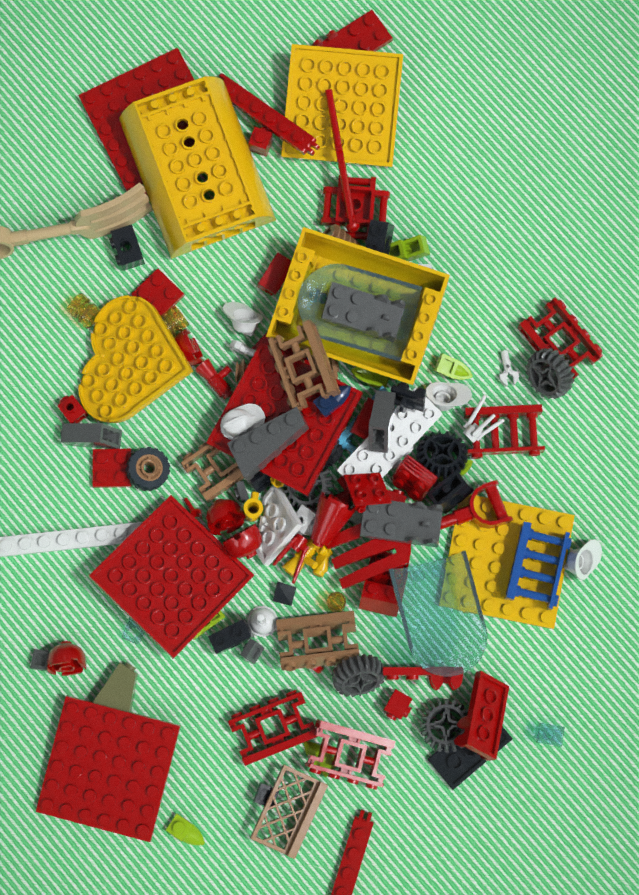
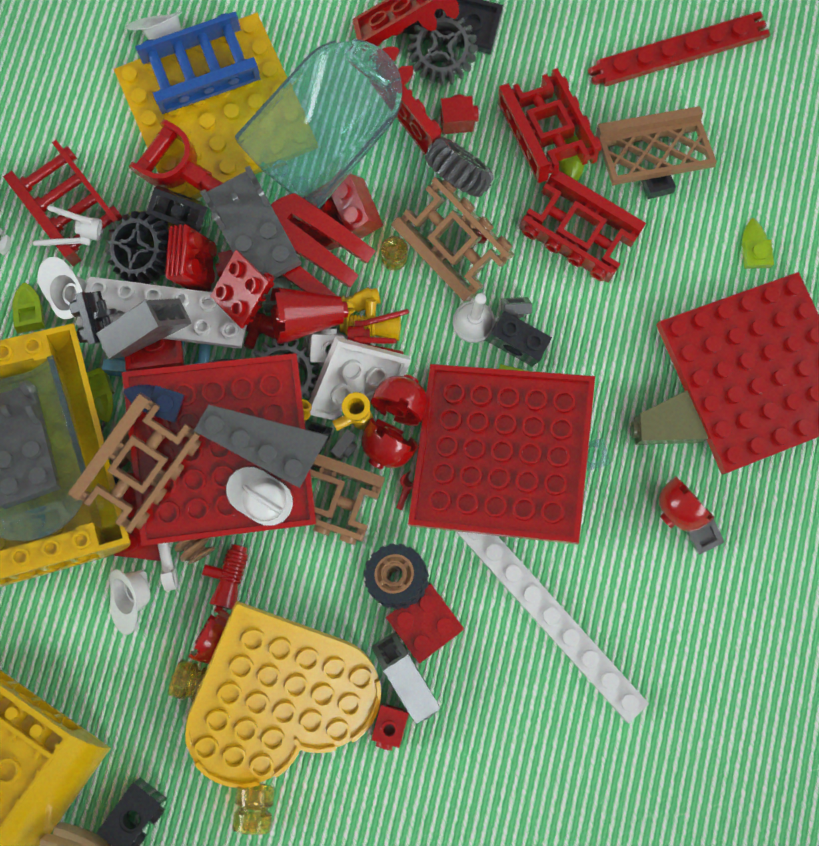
camera: 135 degrees left, 0 degrees up
(159, 292) = (164, 730): red plate -> none
(274, 274) = (44, 598): red hinge -> none
(284, 594) = (426, 319): black slope -> none

